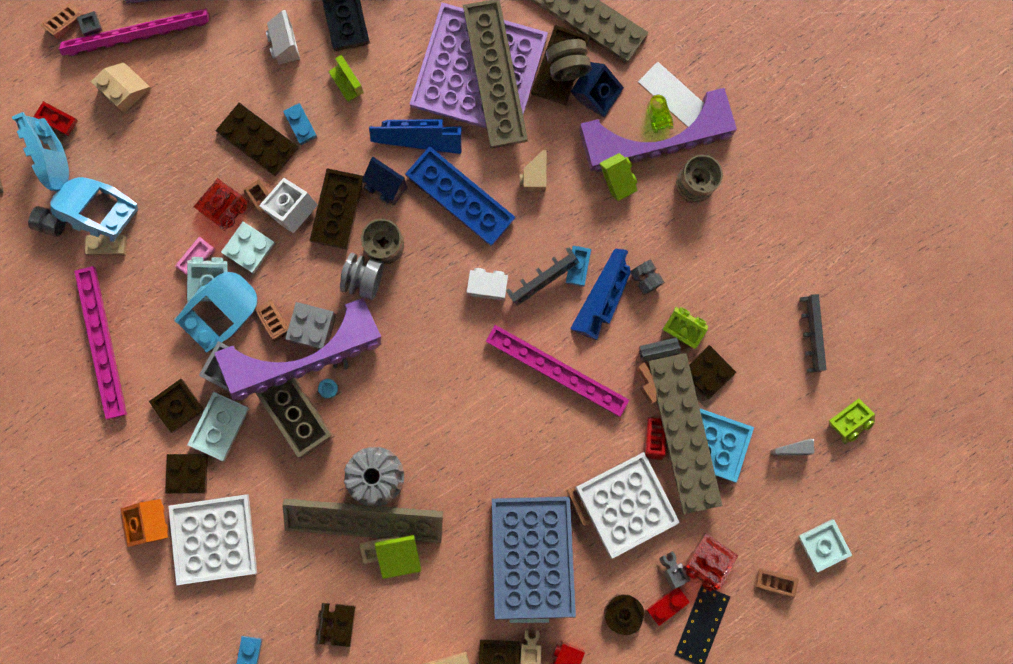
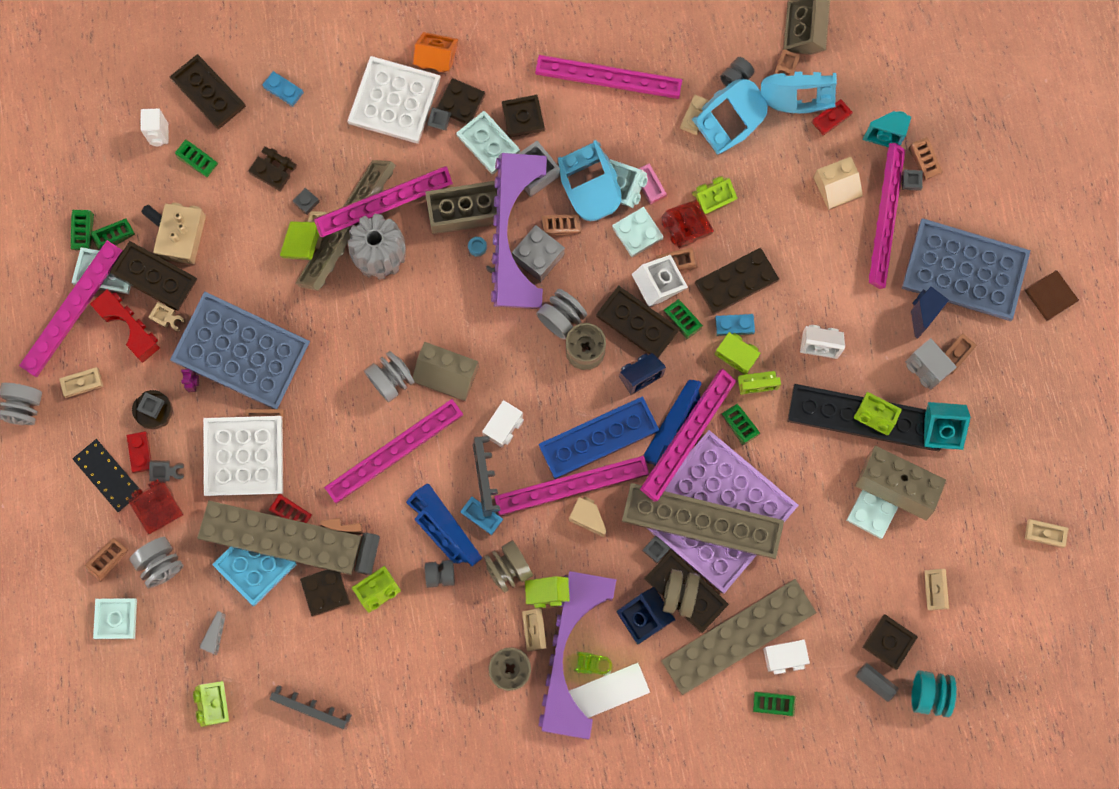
camera: 120 degrees right, 5 degrees down
(20, 181) = (787, 63): none -> nougat slope
(47, 56) = (888, 129): none -> teal slope
(180, 192) = (715, 194): none -> lime bracket
(214, 485) = (439, 119): none -> dark grey plate
(309, 167) = (687, 314): none -> green slope
(326, 109) = (737, 353): none -> lime brick
(327, 492) = (382, 201): none -> dark pink plate
(355, 574) = (306, 201): none -> dark grey plate
(385, 77) = (739, 433): none -> green slope
(424, 116) = (688, 435): none -> dark pink plate
(463, 359) = (445, 371): none -> dark tan slope
(492, 405) = (389, 376): none -> light grey wheel
(514, 200) = (571, 485): none -> dark pink plate
(536, 105) = (656, 549): none -> dark grey plate
(582, 591) = (190, 380): none -> magenta plate
(613, 219) = (508, 566): none -> dark tan wheel
(623, 615) = (150, 405): none -> dark grey plate
(655, 175) = (534, 629): none -> tan plate
(761, 531) = (156, 562): none -> light grey wheel

